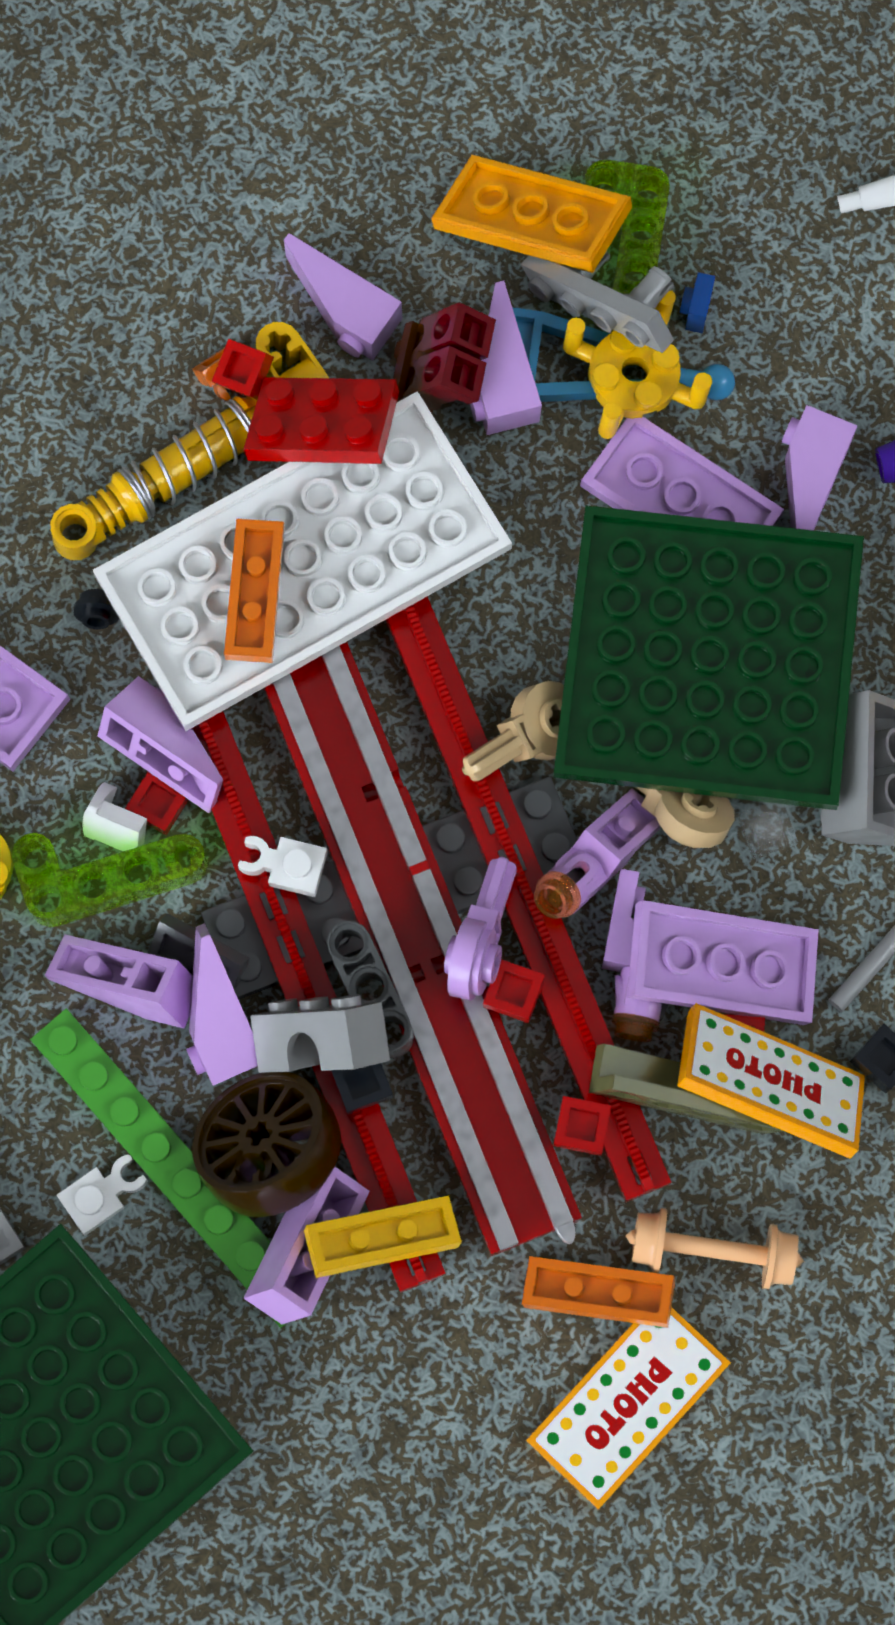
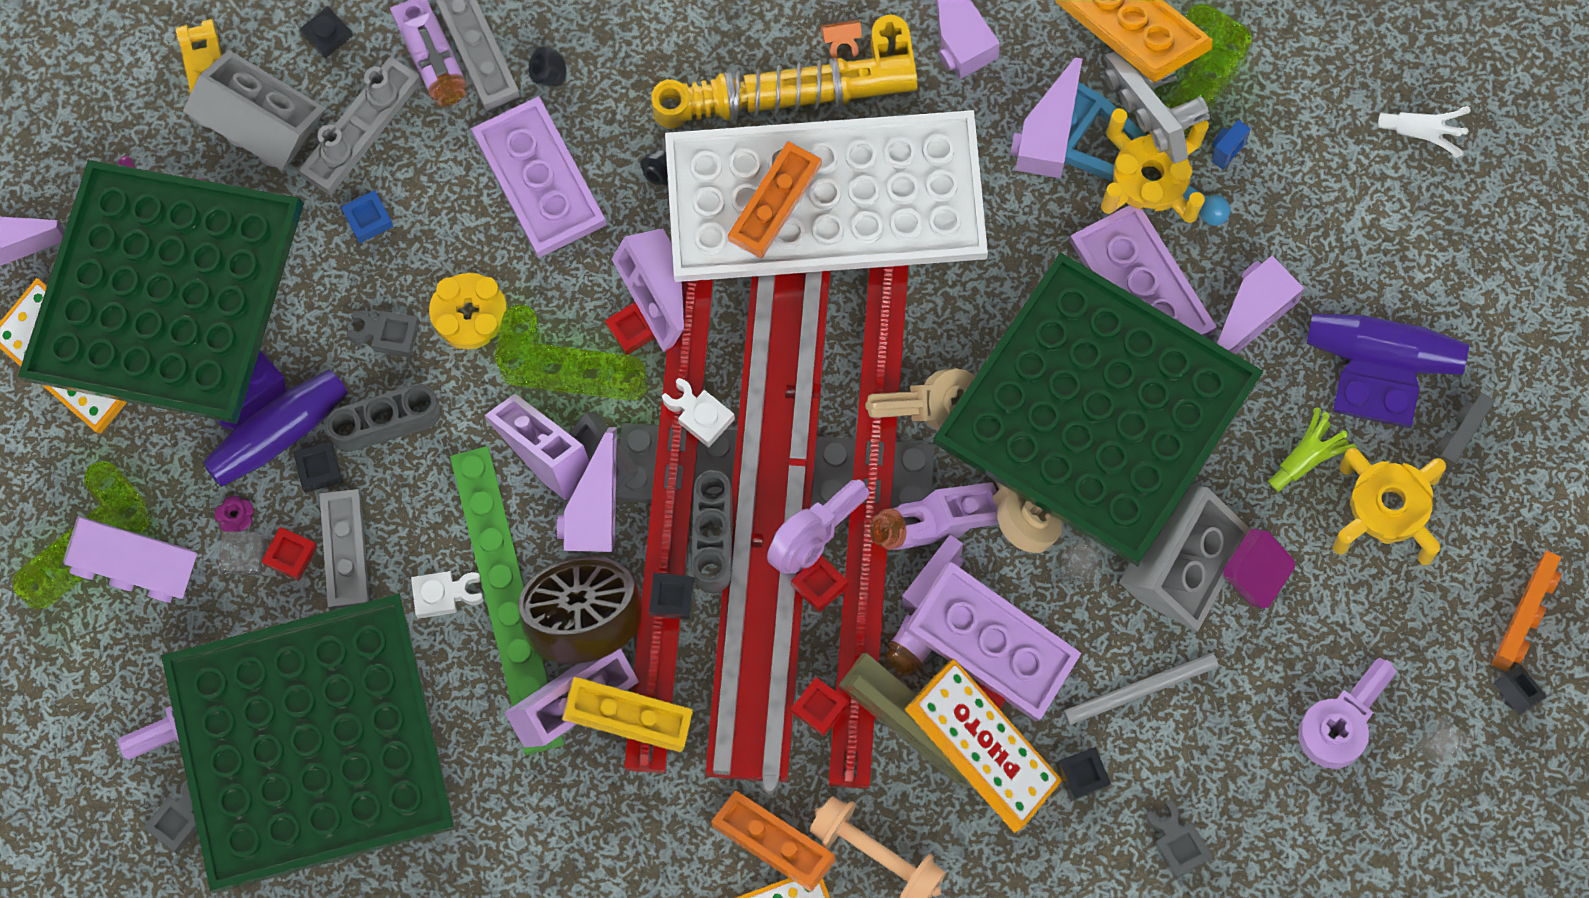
camera: 30 degrees right, 5 degrees down
(112, 823) = (589, 327): white tile -> none
(242, 369) = (853, 38): red plate -> none
(316, 1033) = (657, 545): light grey arch -> none
(322, 420) = (891, 100): red plate -> none
(444, 356) = (1008, 95): dark red hips -> none

